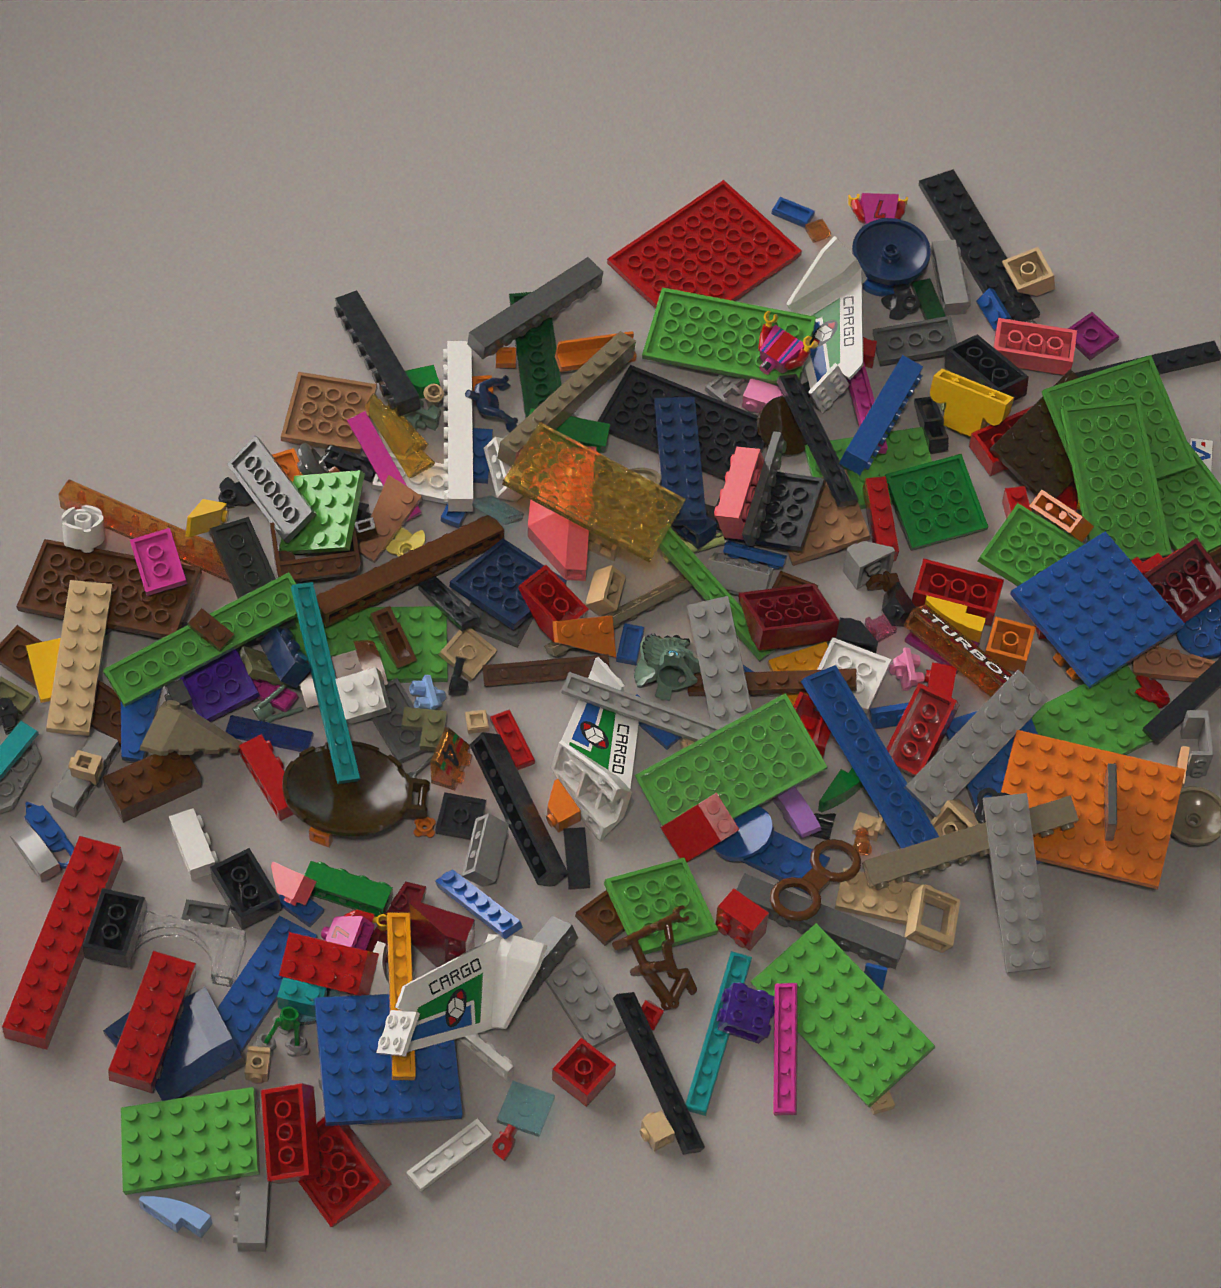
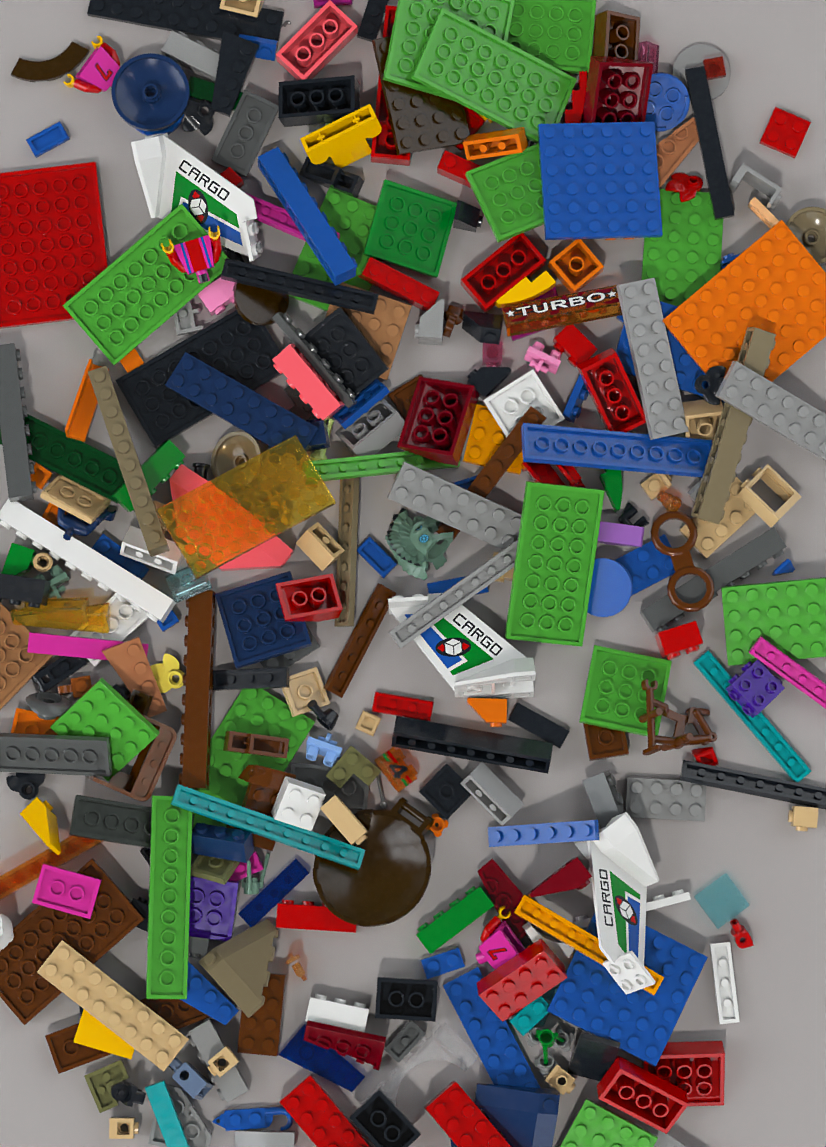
camera: 55 degrees left, 25 degrees up
(52, 751) = (196, 1085): none -> sand blue torso
(143, 855) = (322, 1061): none -> clear blue wing
(172, 862) = (357, 1044): none -> dark red wing
(211, 630) = (166, 891): reddish brown plate -> none
(218, 779) = (298, 969): none -> clear orange piece
(292, 884) = (430, 963): coral slope -> none
(300, 1065) = (593, 1056): none -> black tile
(374, 738) = (344, 820): none -> tan window
(506, 388) = (75, 499): none -> tan tile
(583, 1072) = (725, 841): red brick -> none
(590, 634) = (355, 590): orange wing -> none
(657, 368) = (131, 361): none -> orange tile
(699, 828) = (584, 617): red slope -> none
(817, 230) = (80, 132): clear orange tile -> none
(851, 181) = (52, 68): none -> dark brown tile
(957, 297) = (232, 70): none -> black wing
(979, 533) = (467, 217): none -> black slope
(1110, 801) = (779, 300): dark grey tile -> none

